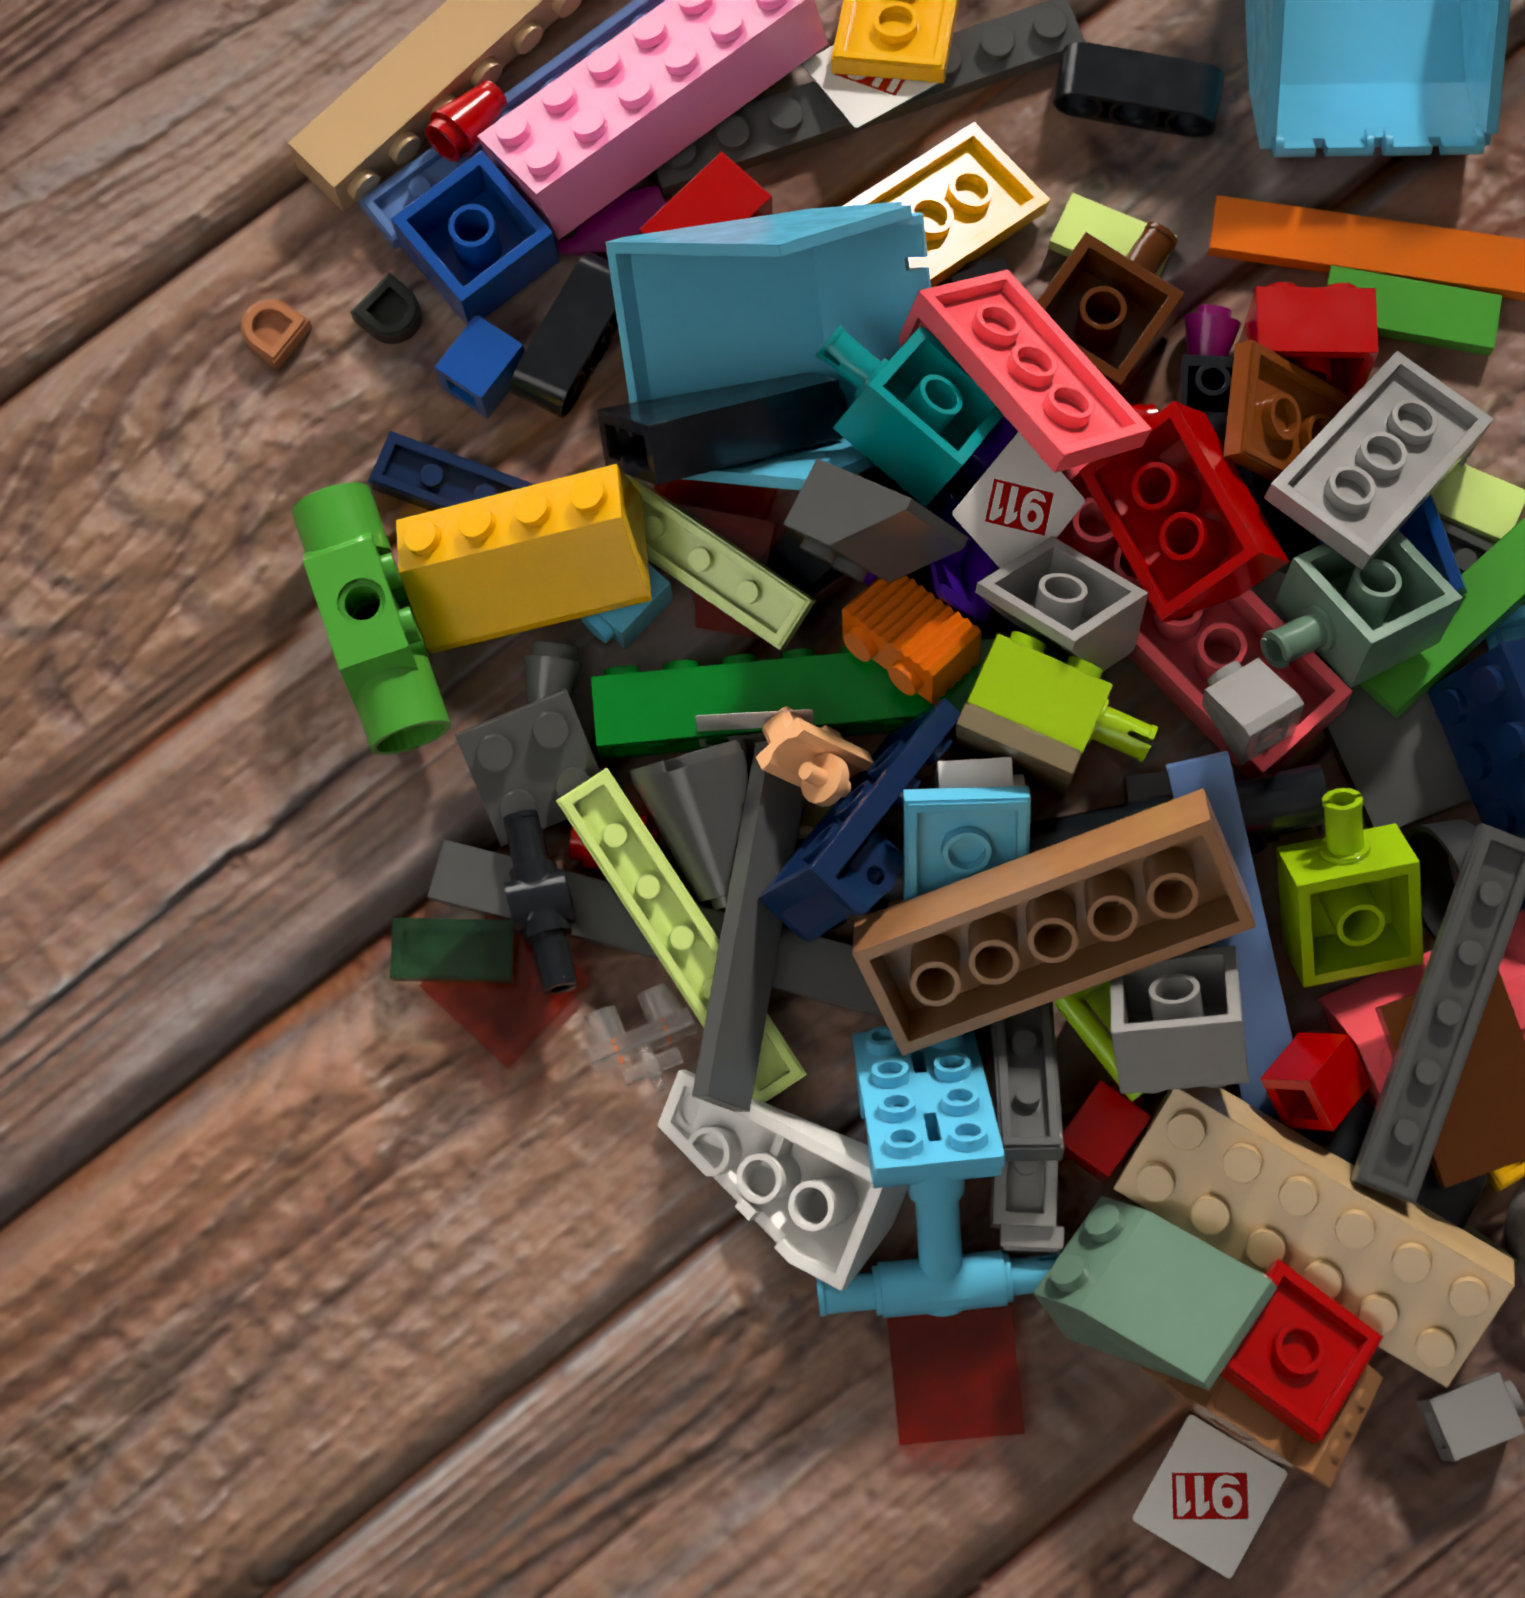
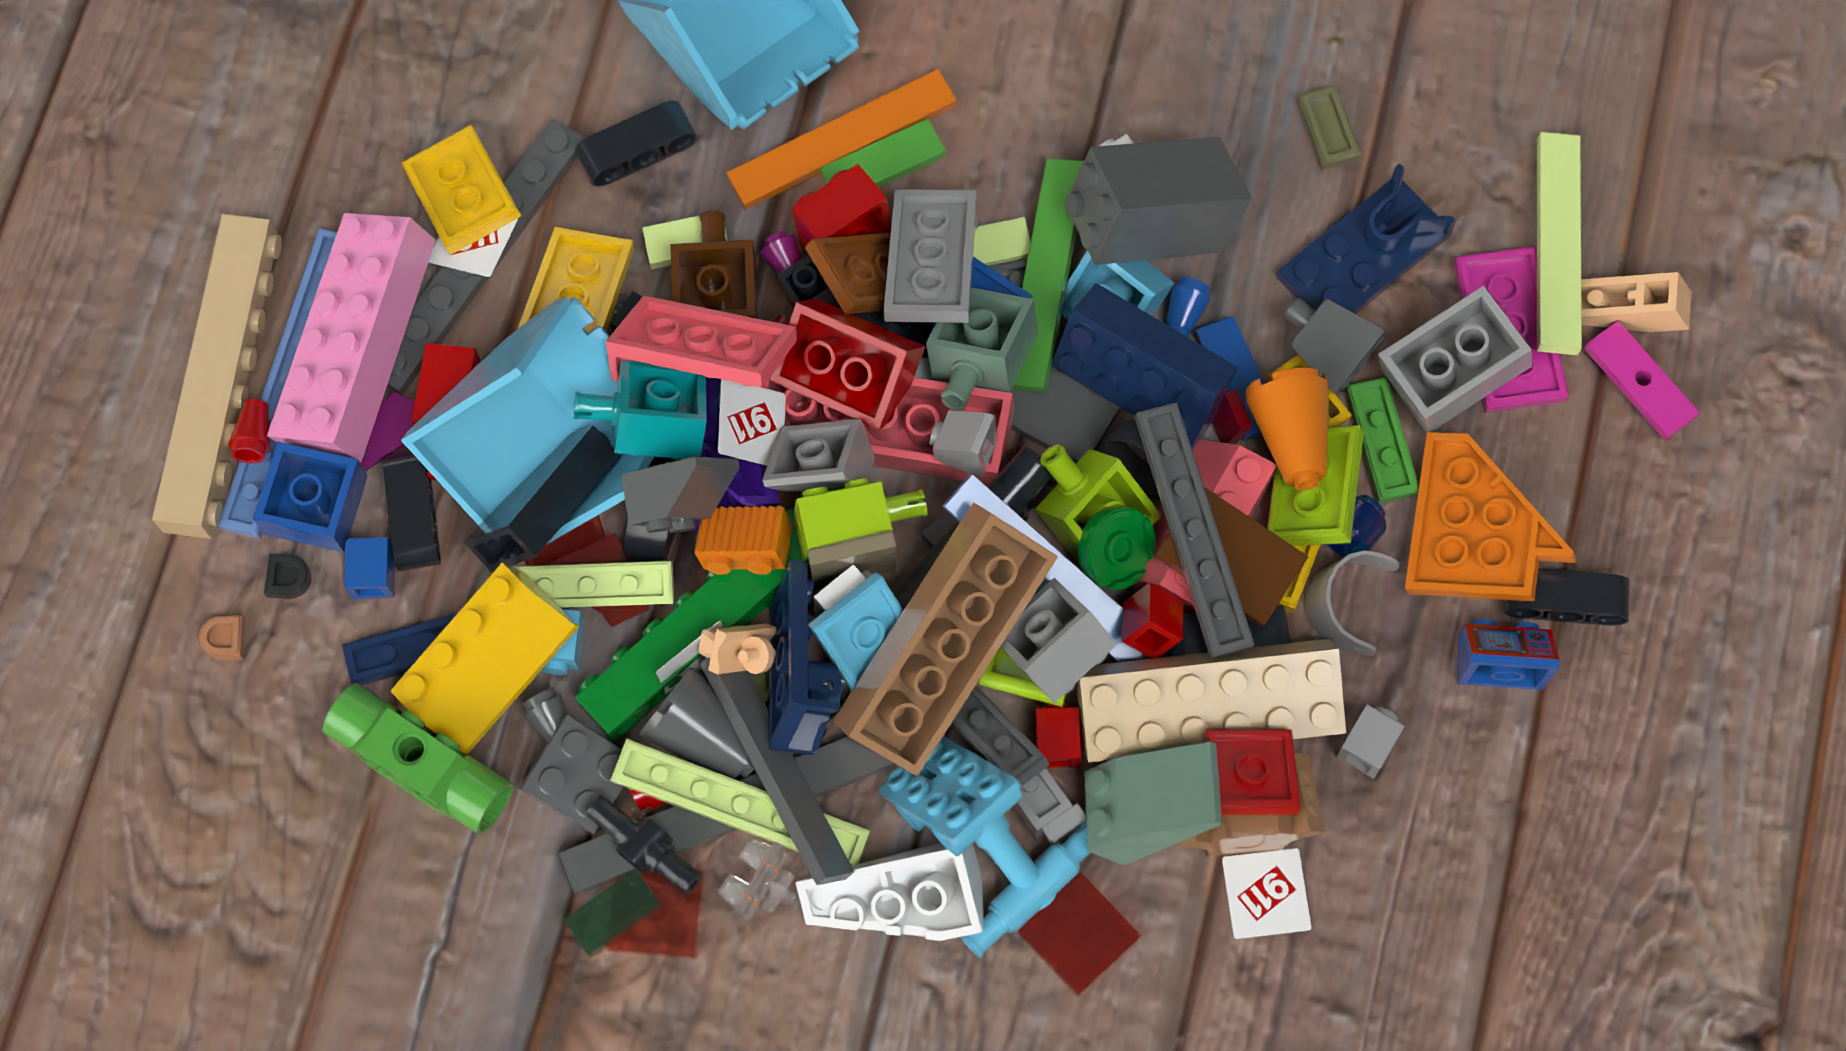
camera: 40 degrees left, 5 degrees down
(1339, 962) = (1116, 547): none -> green tile

